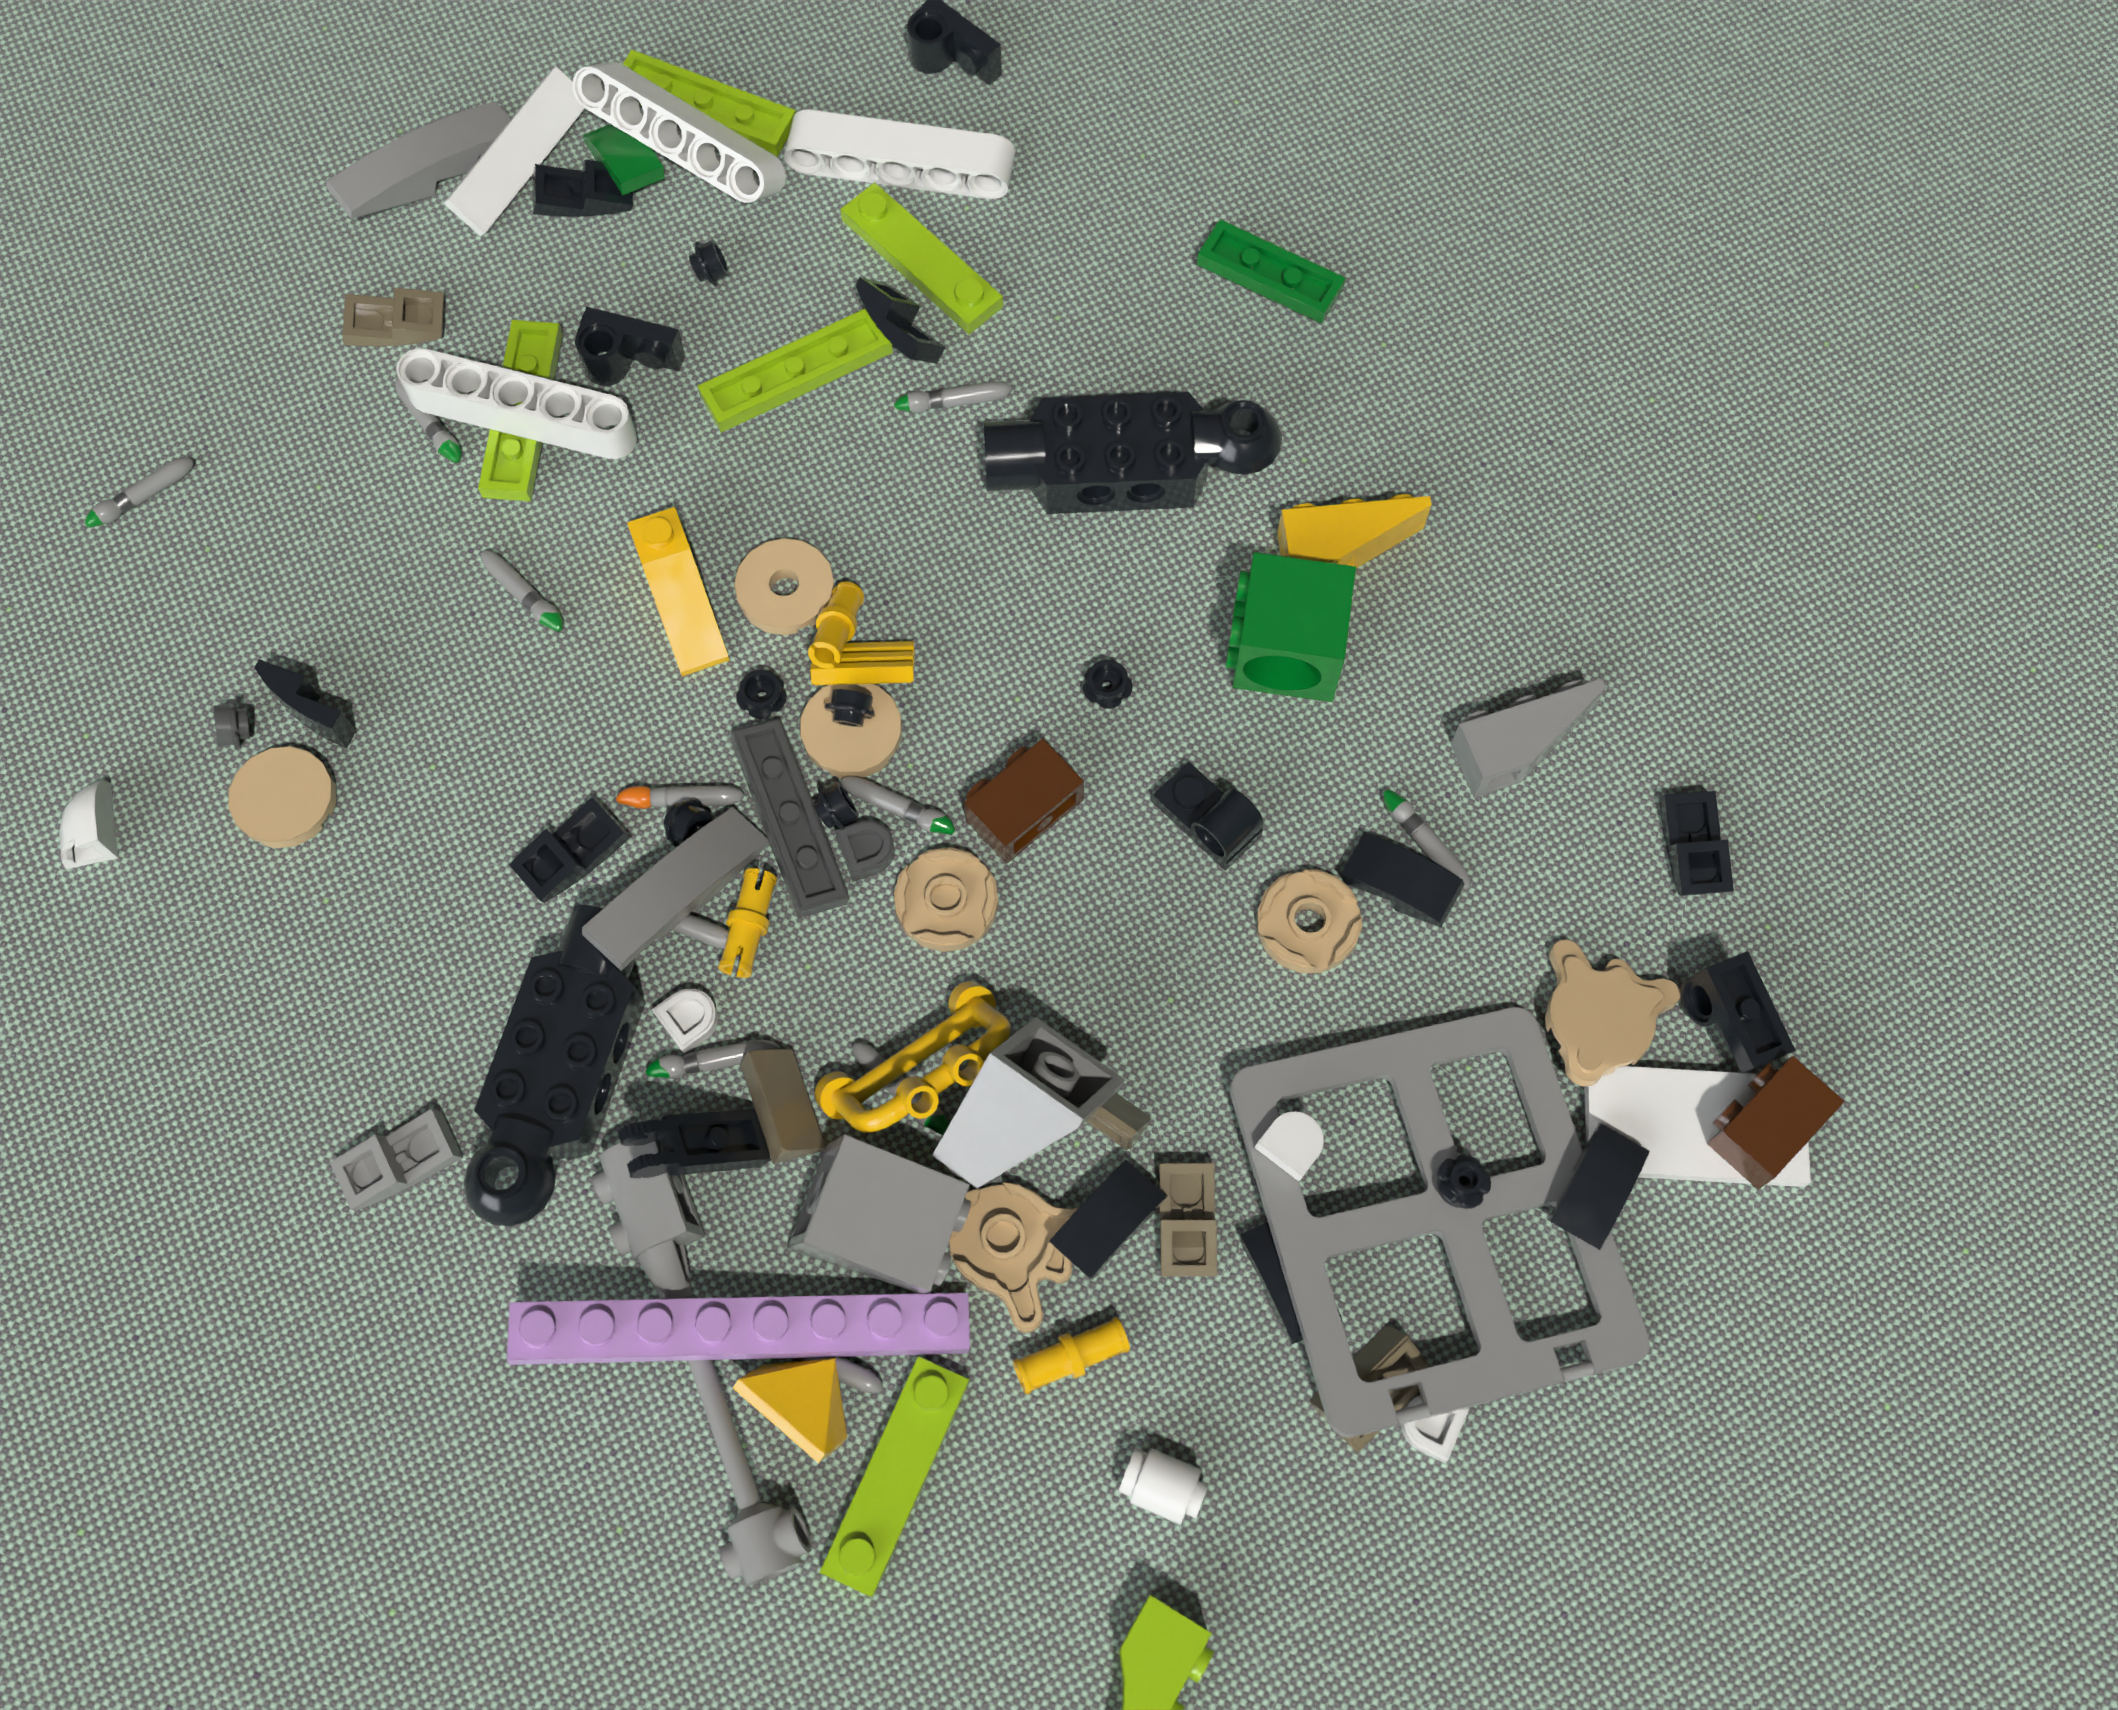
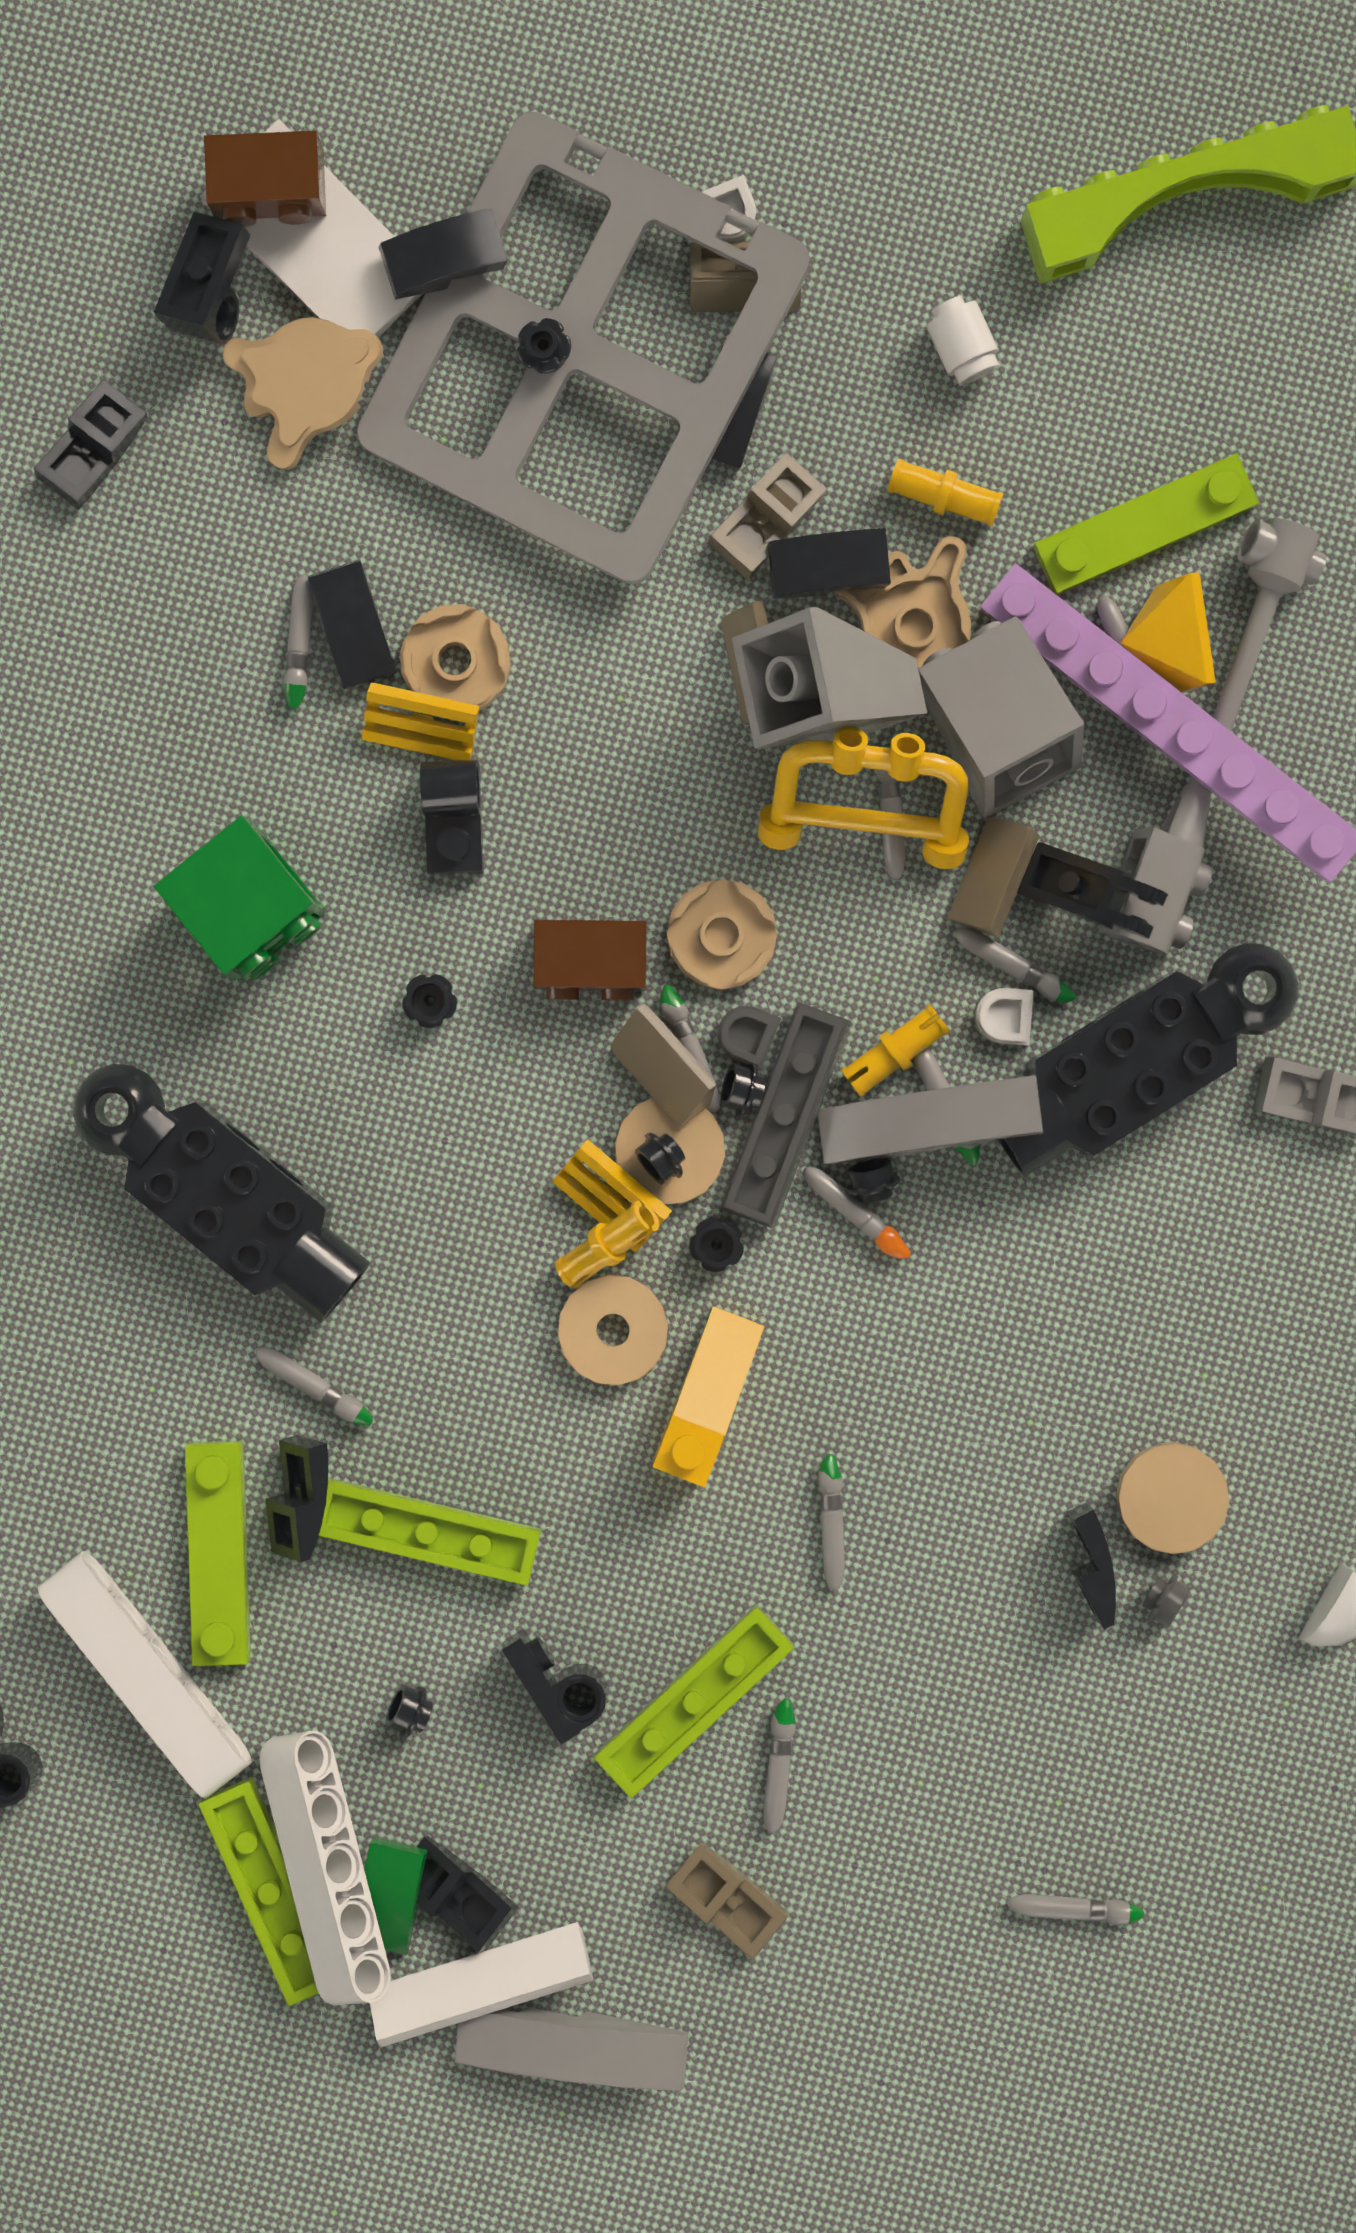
camera: 140 degrees left, 20 degrees up
(501, 388) = (708, 1719): white beam -> none
(571, 852) = (982, 1242): black slope -> none
(904, 769) = (663, 1066): none -> dark tan slope
(1290, 853) = (420, 731): none -> yellow tile
(1292, 1143) = (644, 486): white tile -> none
(1350, 530) = (125, 955): yellow slope -> none
(1511, 743) = (145, 646): light grey slope -> none

